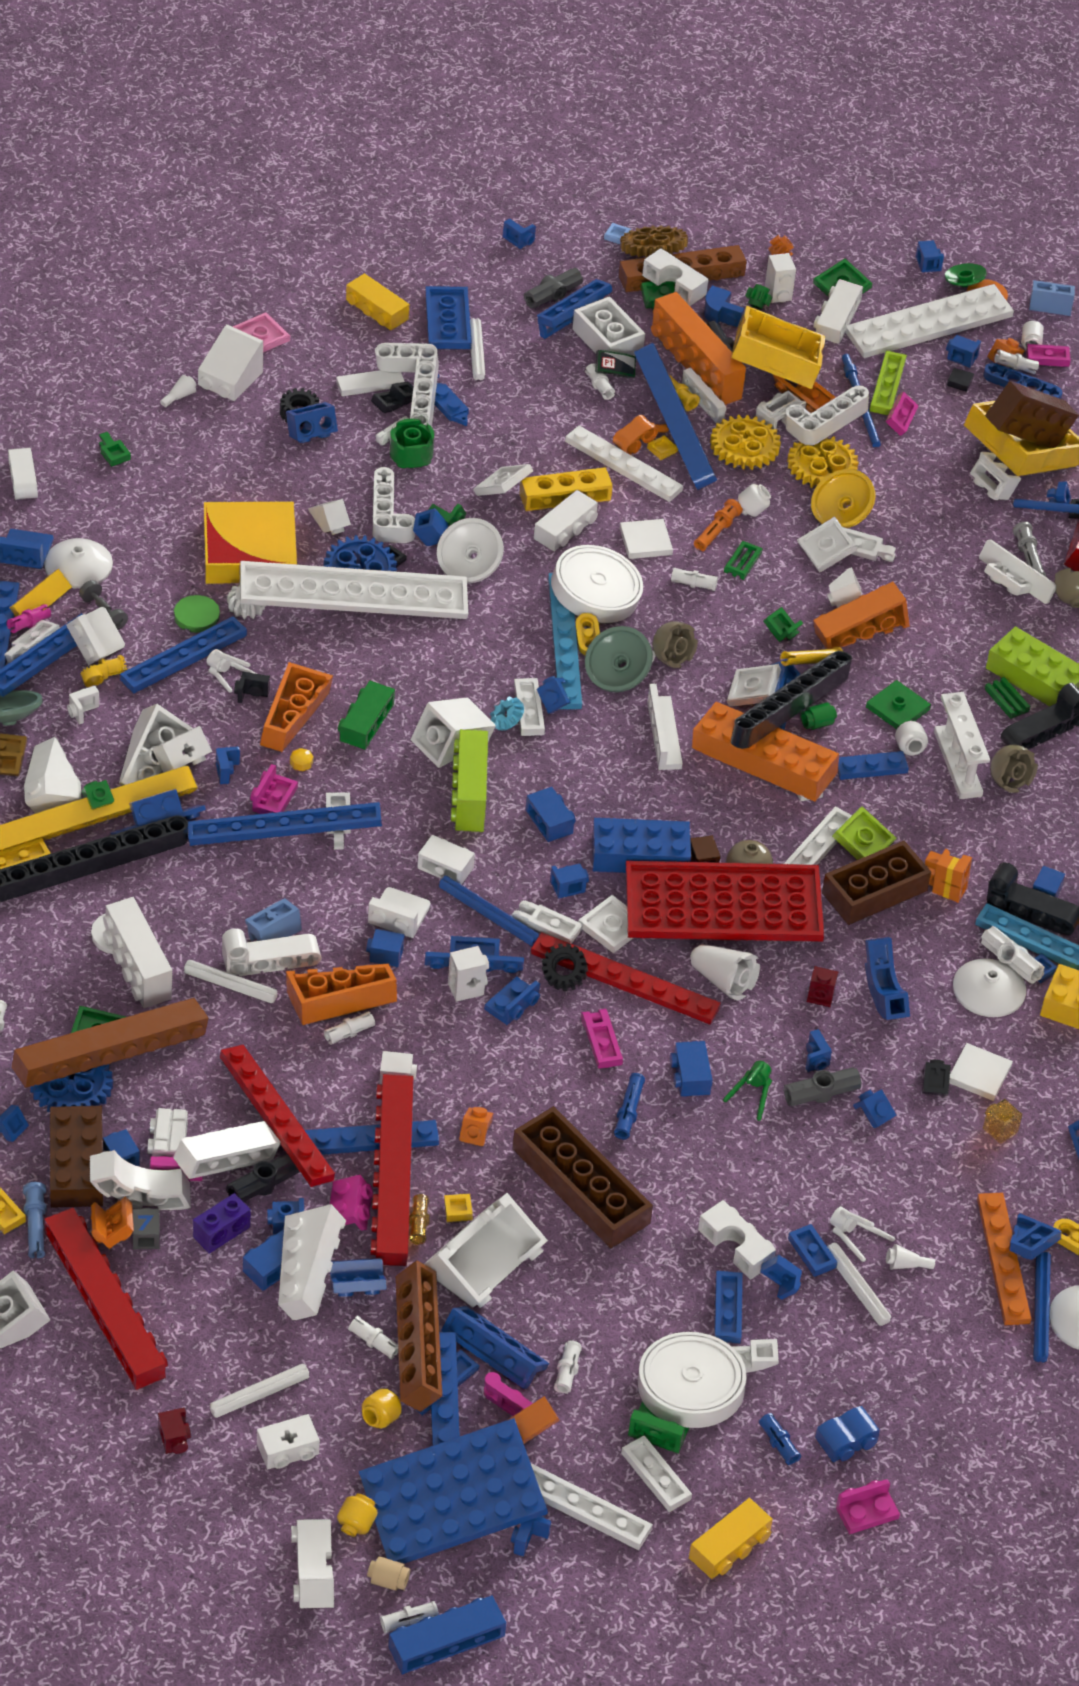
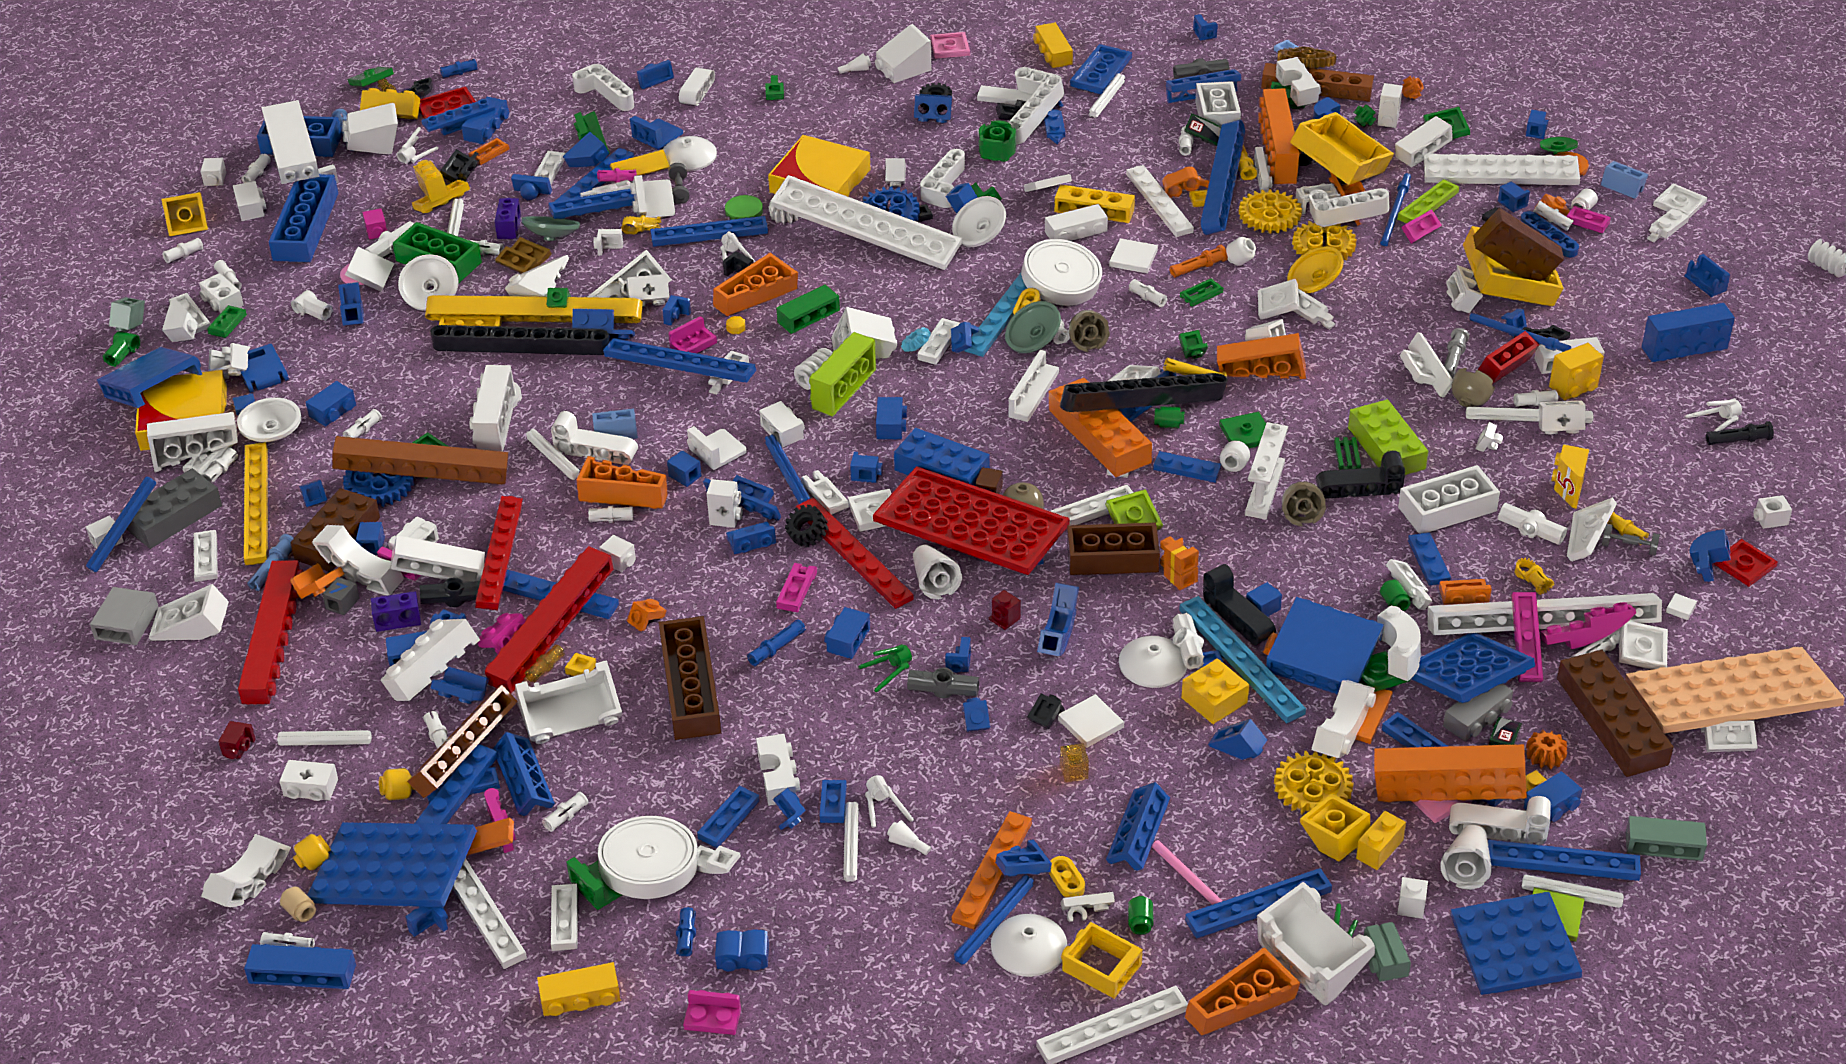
camera: 35 degrees right, 5 degrees down
(431, 783) = (810, 365): none -> white piece

